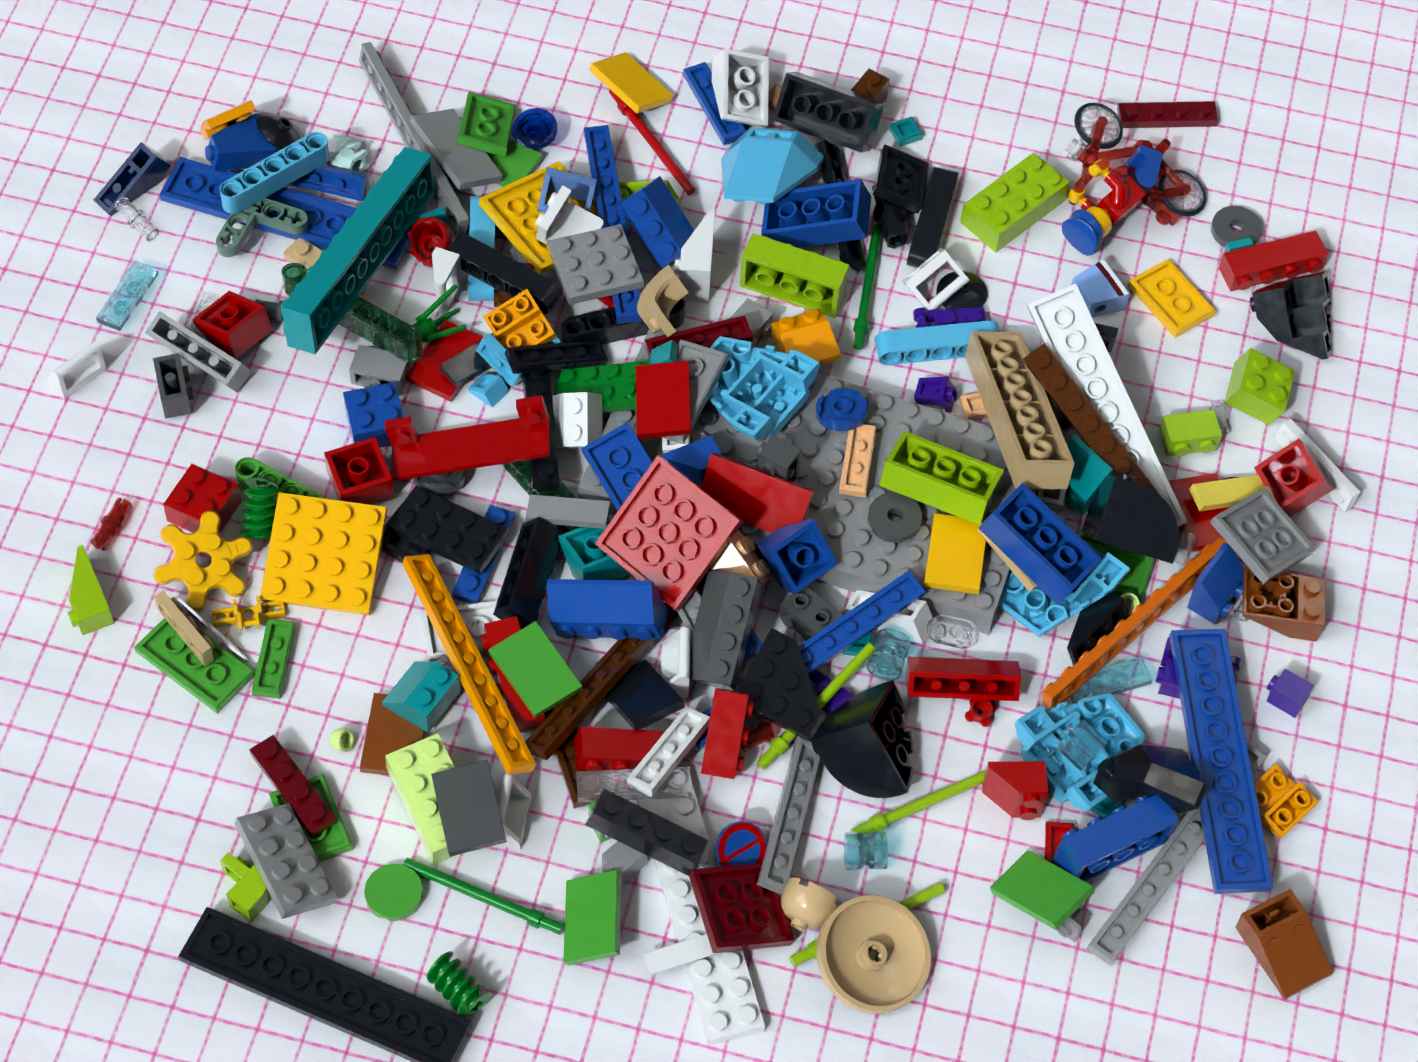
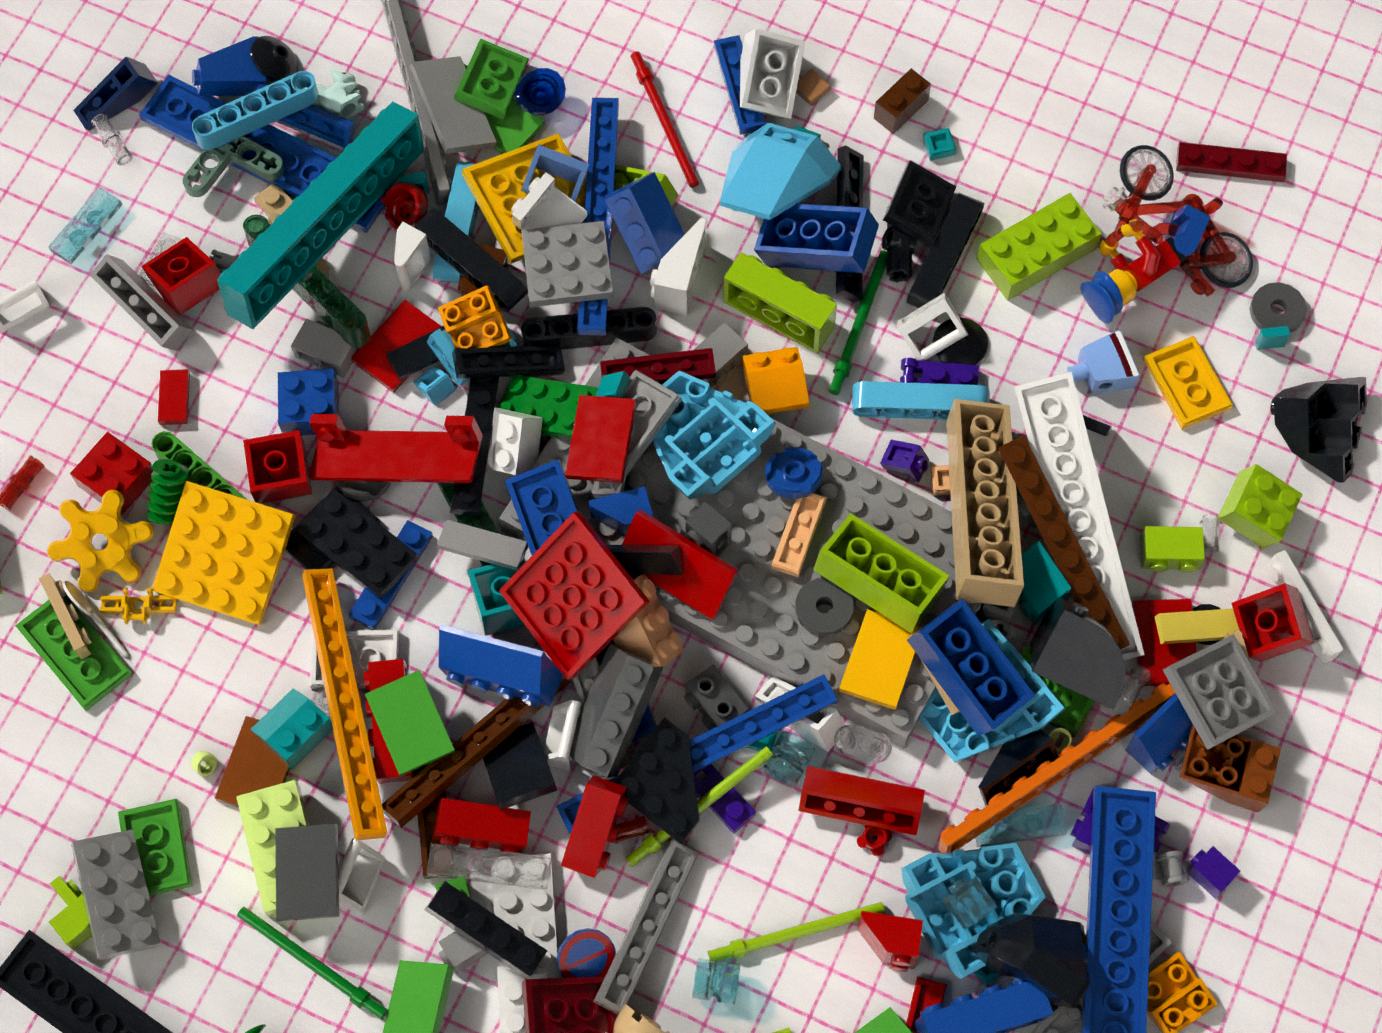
camera: 15 degrees right, 10 degrees up
(172, 386) = (108, 337): dark grey brick -> none
(226, 119) = (222, 39): light orange slope -> none
(243, 431) = (173, 397): none -> red tile
(273, 658) = (153, 659): bright green tile -> none
(293, 786) = (141, 809): dark red plate -> none
(393, 892) = (222, 942): bright green tile -> none
(428, 327) = (382, 307): green plant -> none
(528, 572) = (429, 607): black brick -> none
(631, 82) = (655, 49): yellow tile -> none
(659, 299) = (625, 315): tan arch -> none
(668, 751) = (528, 840): white plate -> none
(737, 493) = (649, 558): none -> black slope
(797, 554) = (711, 635): blue slope -> none
(828, 111) = (856, 115): black brick -> none
(868, 743) = (744, 859): black brick -> none
(1252, 696) = (1172, 869): none -> light grey bush
(1273, 261) = (1309, 356): red brick -> none

